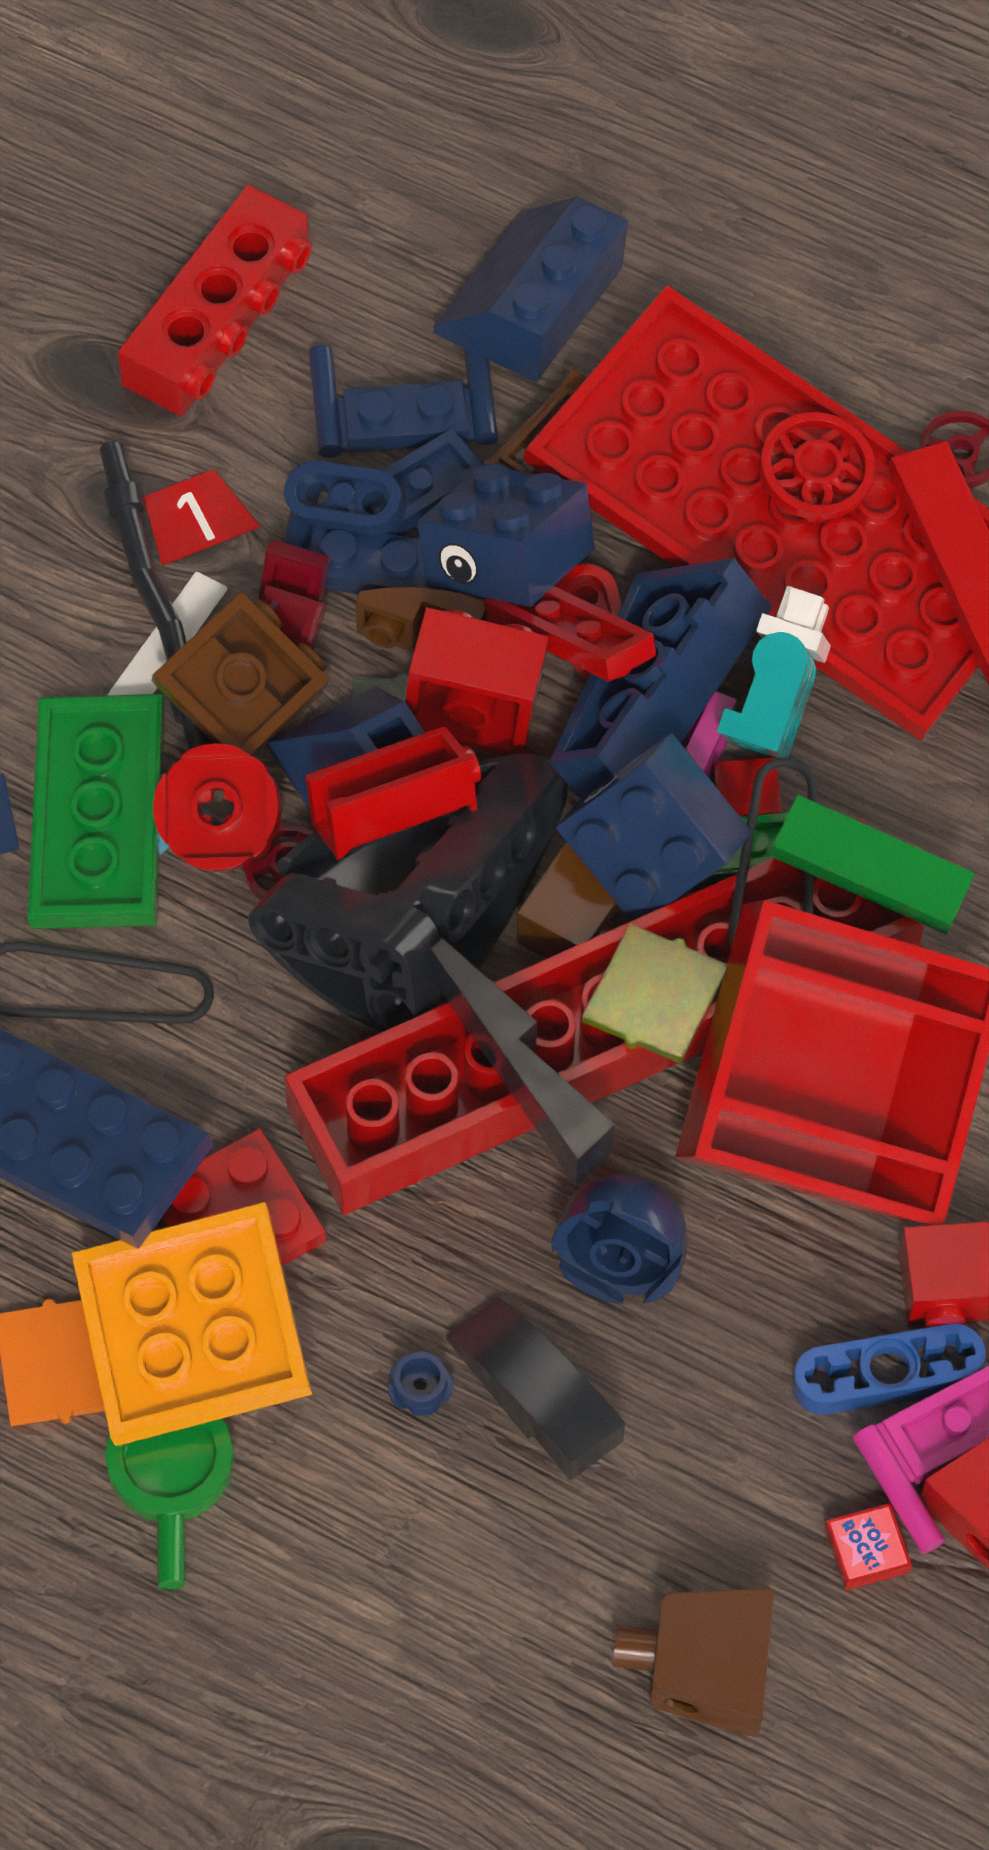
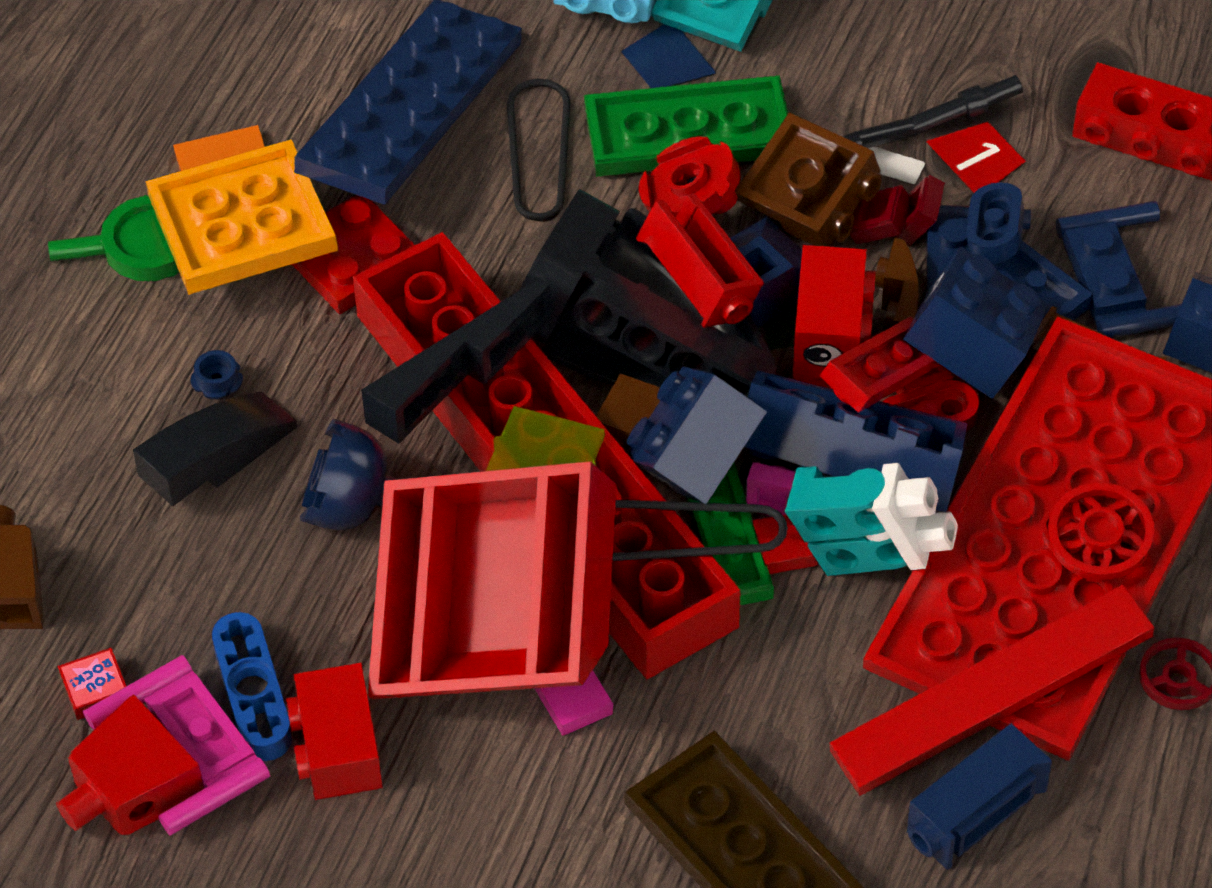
camera: 85 degrees right, 10 degrees down
(872, 864) = (685, 590): green tile -> none

